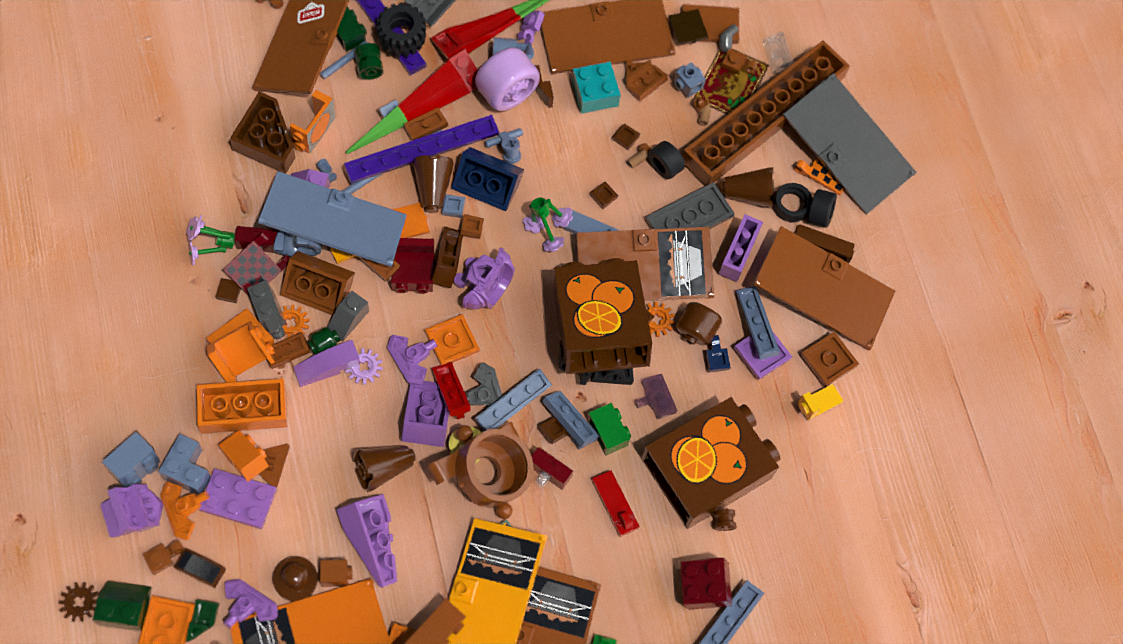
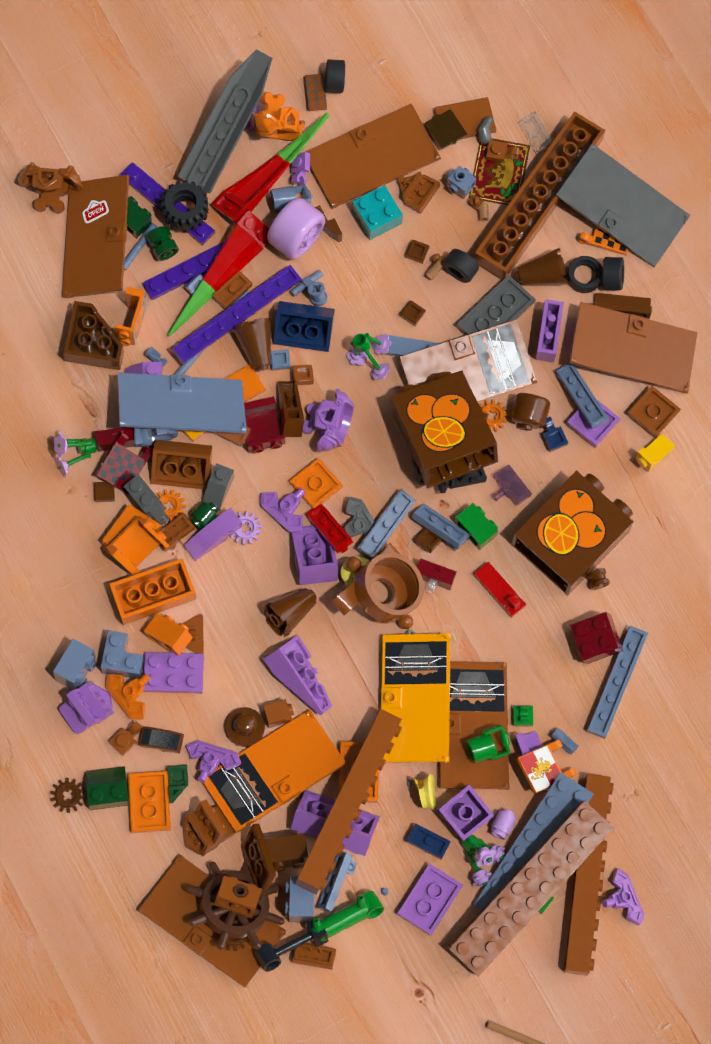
camera: 10 degrees left, 5 degrees up
(376, 97) = (181, 273): none -> dark purple plate

